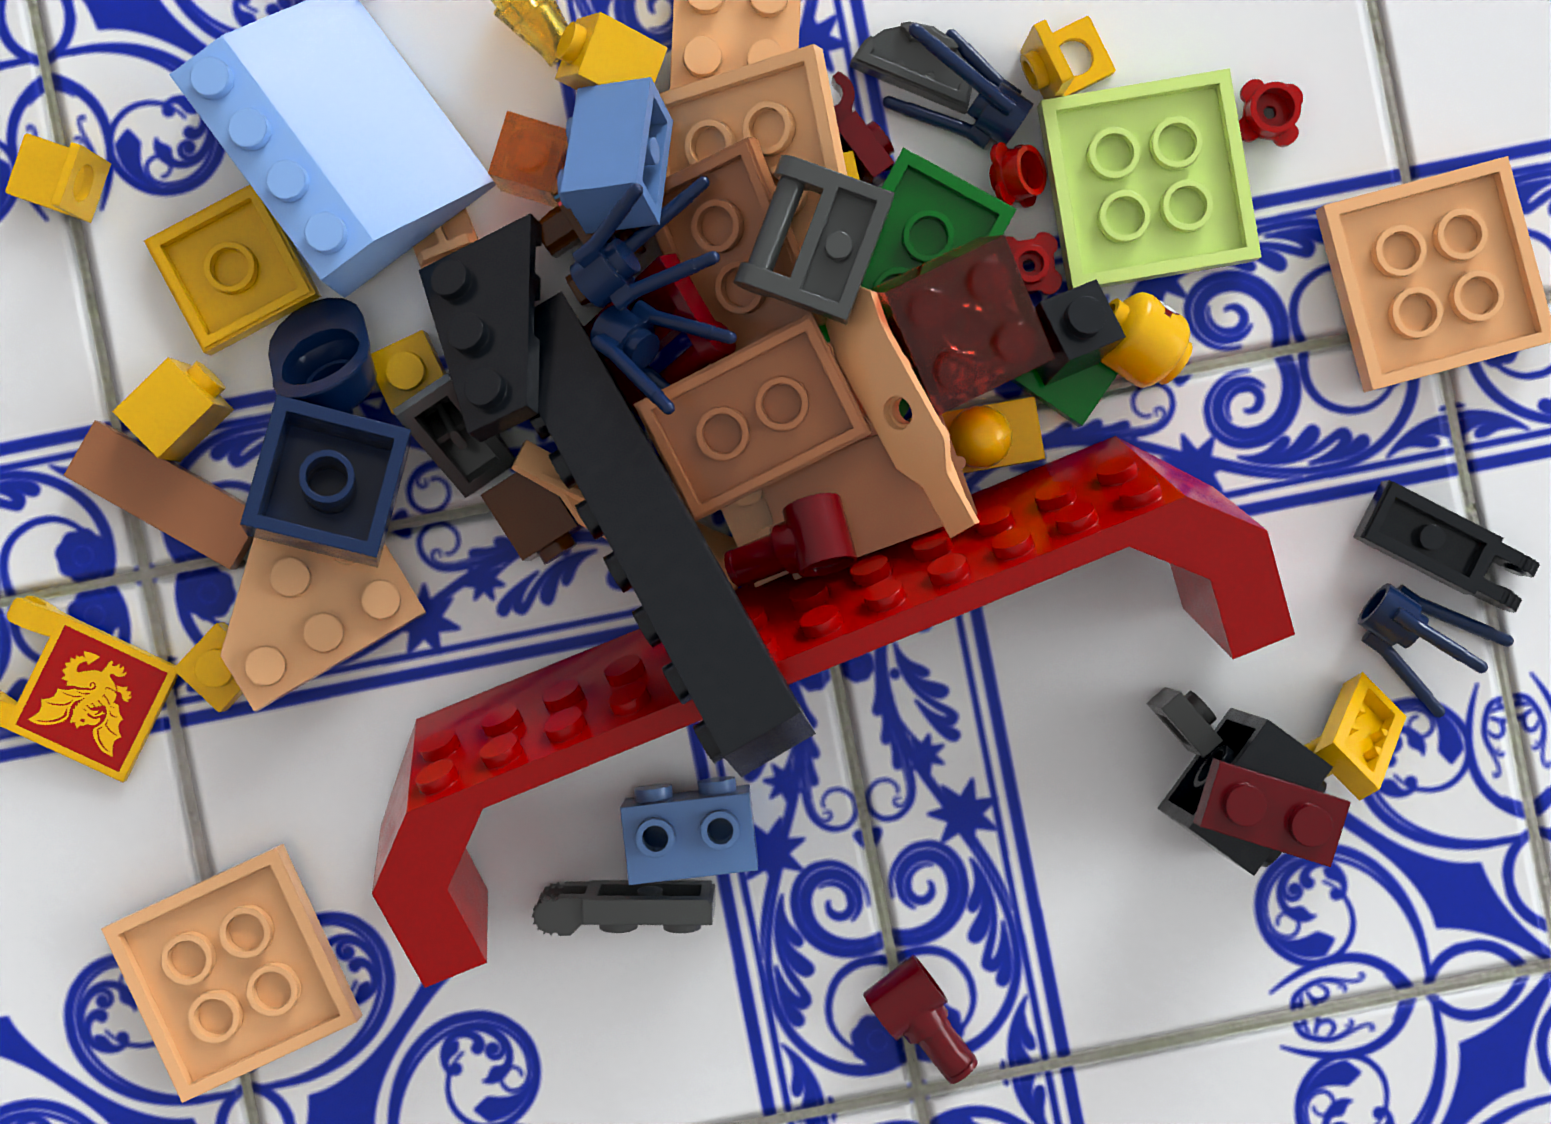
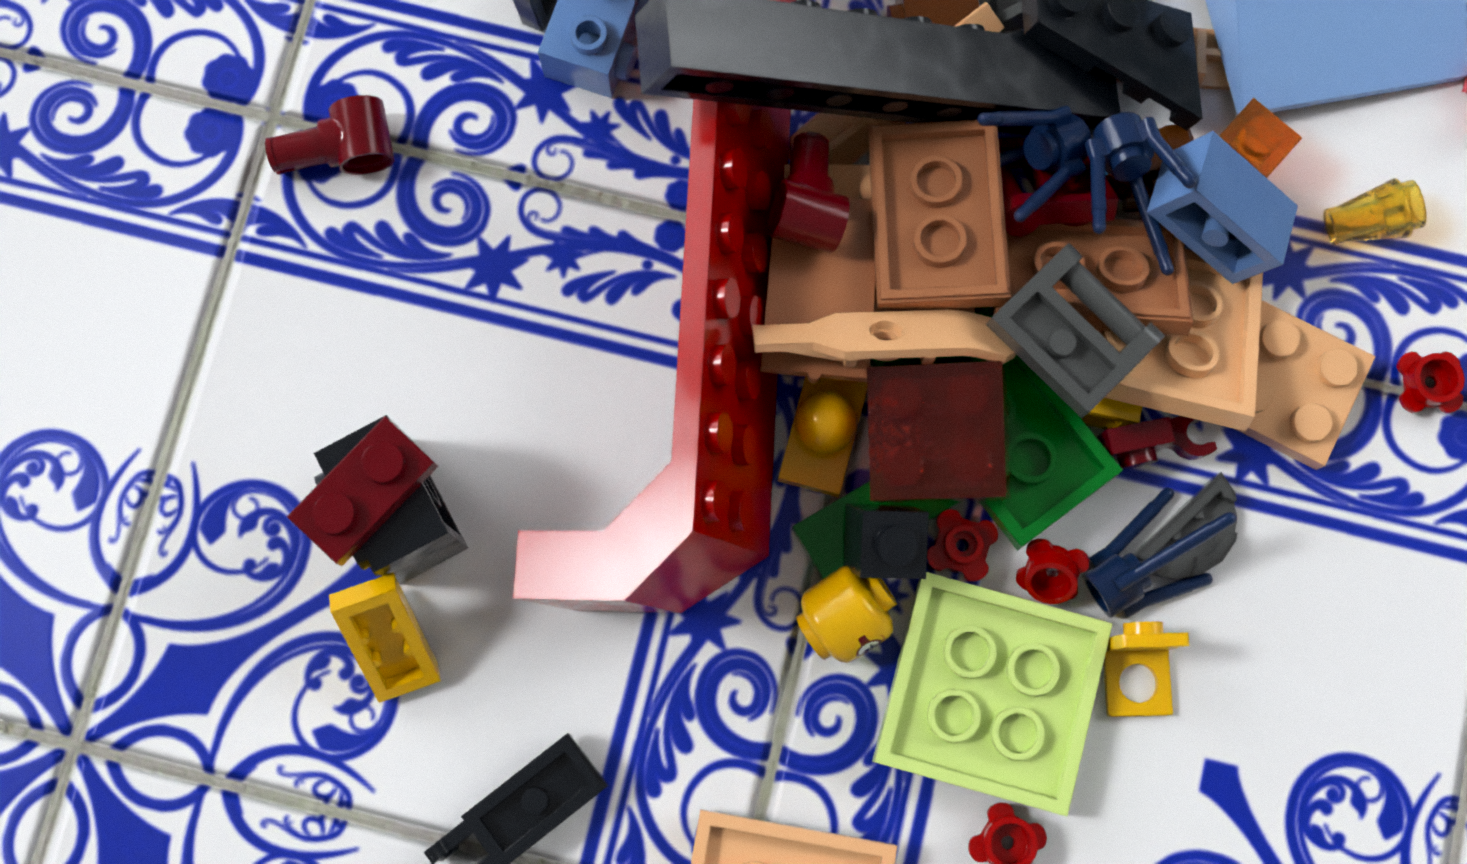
camera: 115 degrees right, 10 degrees down
(605, 52) = (1315, 251): yellow brick -> none
(1187, 719) = (479, 491): dark grey plate -> none
(1396, 618) = (474, 734): dark blue plant -> none

